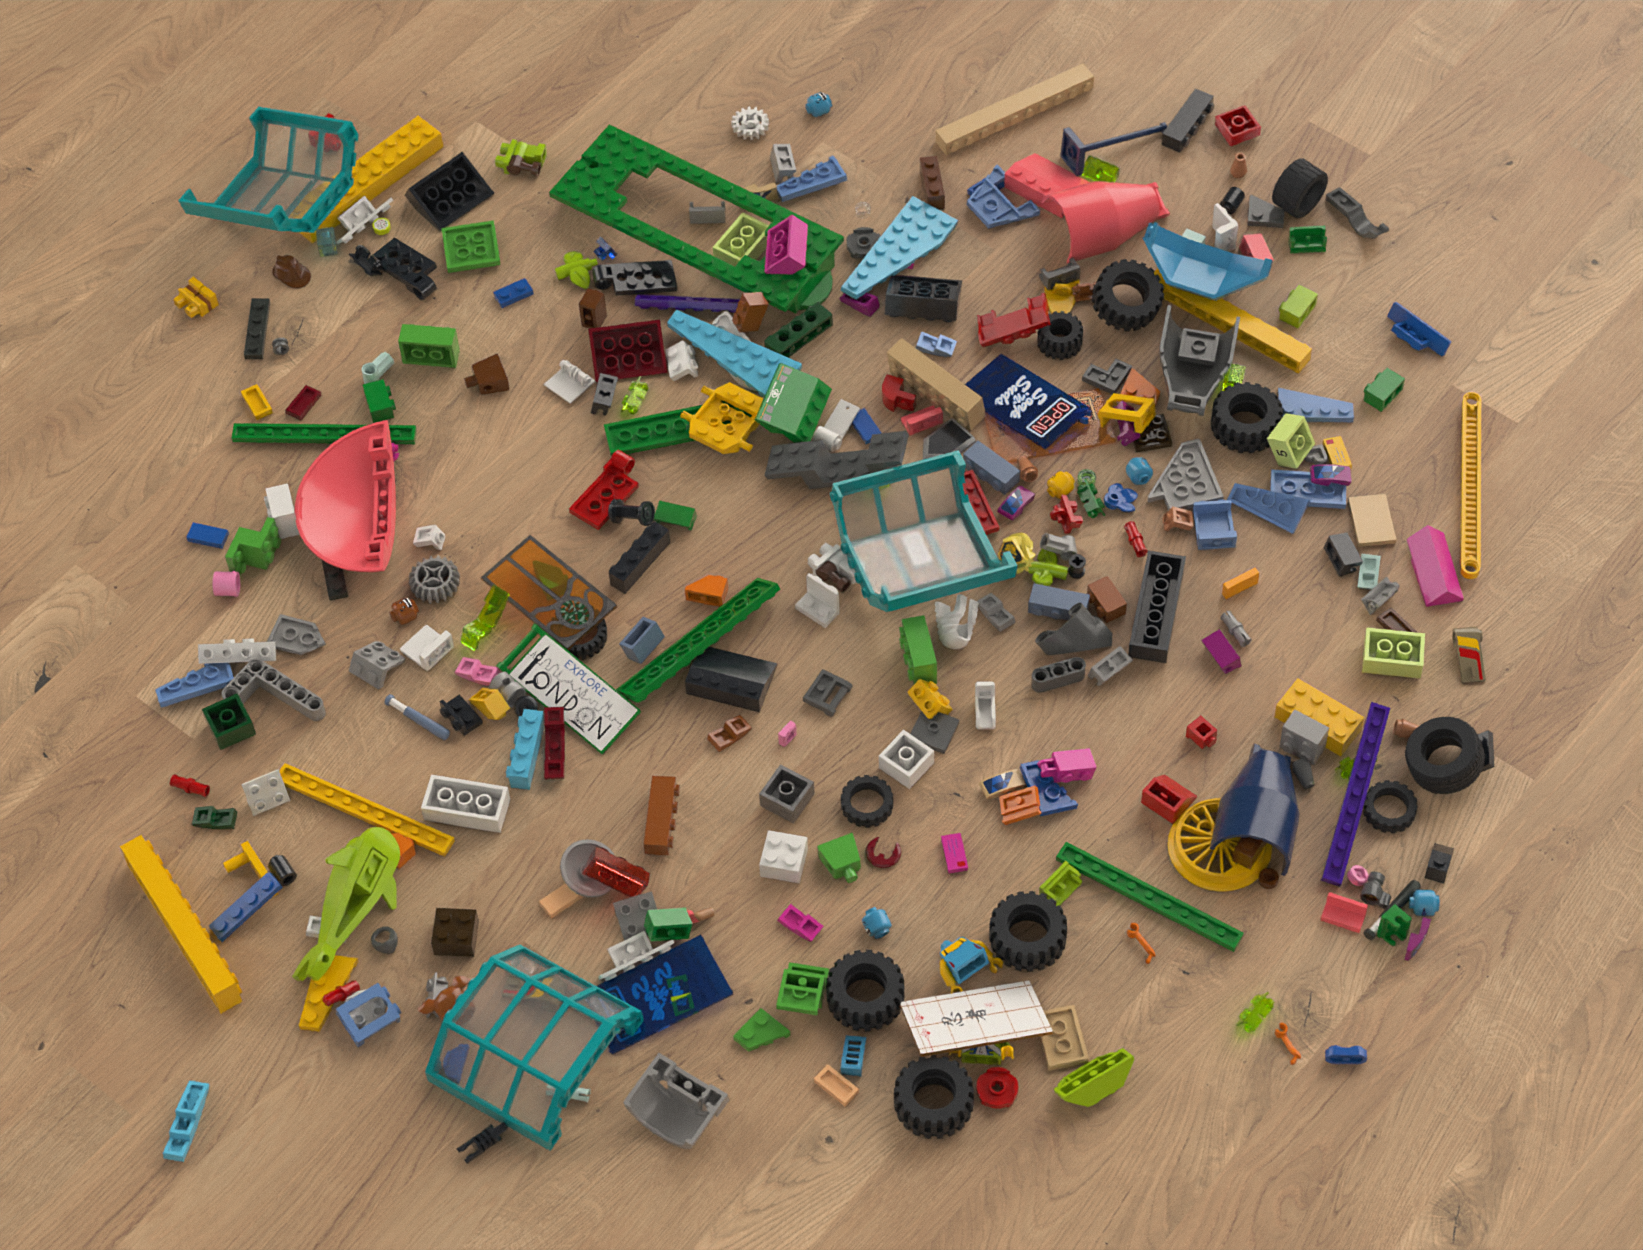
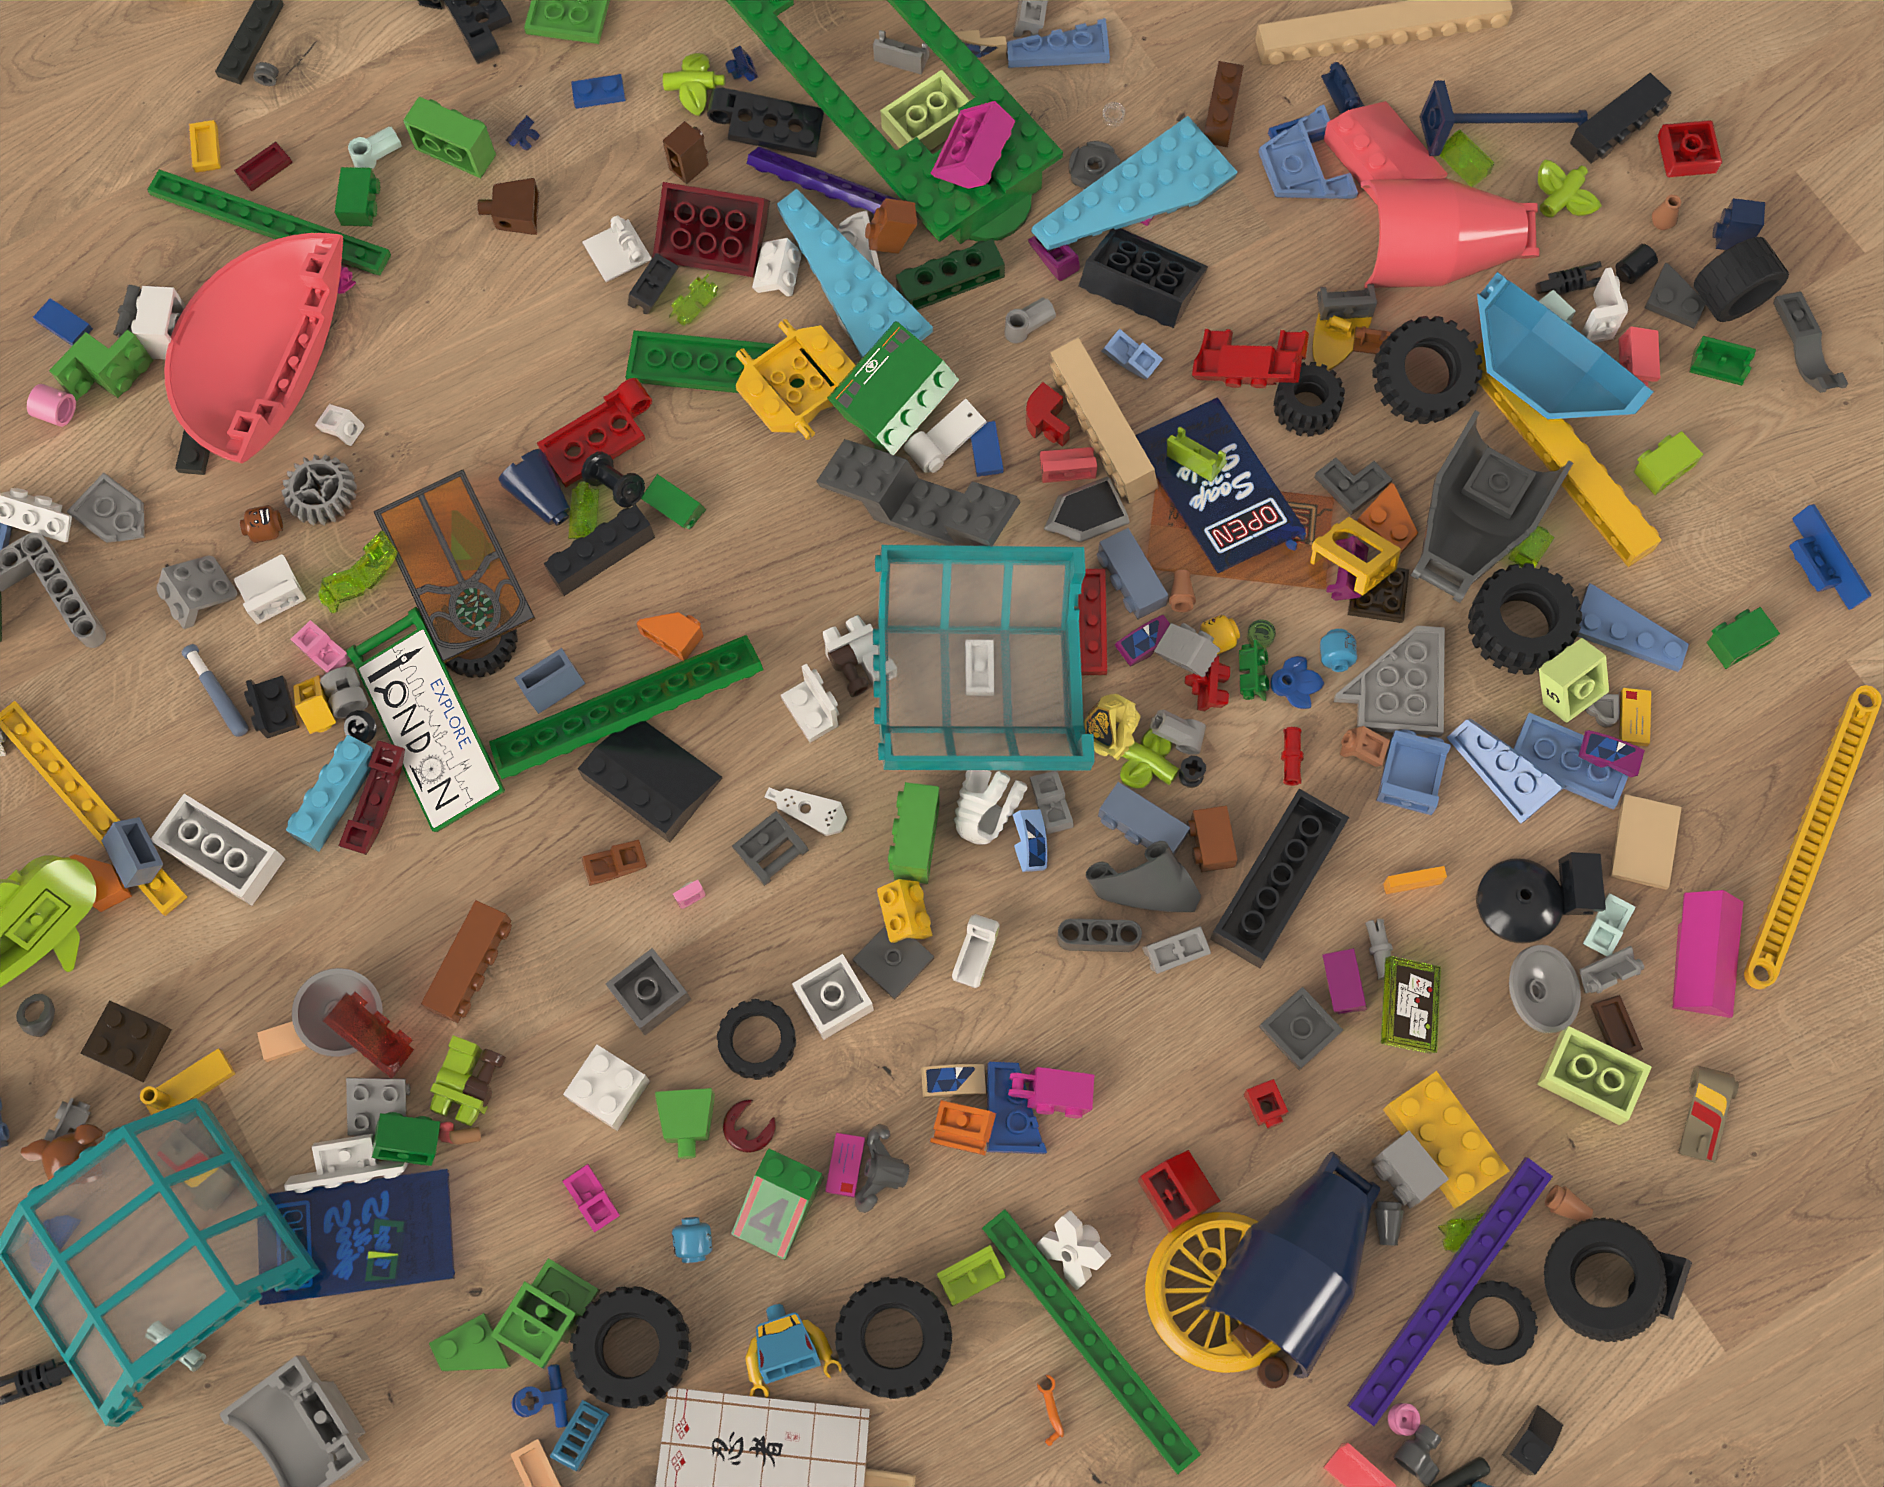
camera: 20 degrees right, 15 degrees up
(252, 513) = (127, 311): none -> dark grey pin
(412, 818) = (132, 852): none -> sand blue brick
(473, 331) = (521, 131): none -> clear blue tile
(516, 934) = (189, 1083): none -> yellow piece
(582, 533) = (536, 487): none -> dark blue cone
(616, 539) = (583, 511): none -> clear neon green hinge
(686, 888) = (459, 1086): none -> lime hips
(816, 1040) = (556, 1396): none -> blue piece
(849, 663) = (819, 810): none -> white piece
(860, 343) = (1029, 319): none -> light grey piece
(921, 885) = (777, 1203): none -> slope
(978, 845) = (881, 1170): none -> dark grey piece
(995, 639) = (1033, 844): none -> light blue slope
(1002, 389) = (1195, 456): none -> lime hinge
(1003, 153) = (1341, 88): none -> dark blue hinge
(1045, 496) = (1187, 648): none -> light grey brick
(1118, 846) = (1075, 1246): none -> white plant
(1170, 172) = (1565, 191): none -> lime plant
(1194, 221) = (1569, 279): none -> black hinge
(1205, 686) = (1300, 1028): none -> dark grey plate
(1267, 651) = (1411, 1005): none -> tile
(1284, 155) = (1739, 222): none -> dark blue brick
(1306, 583) = (1511, 915): none -> black dish
(1343, 615) = (1544, 989): none -> light grey dish

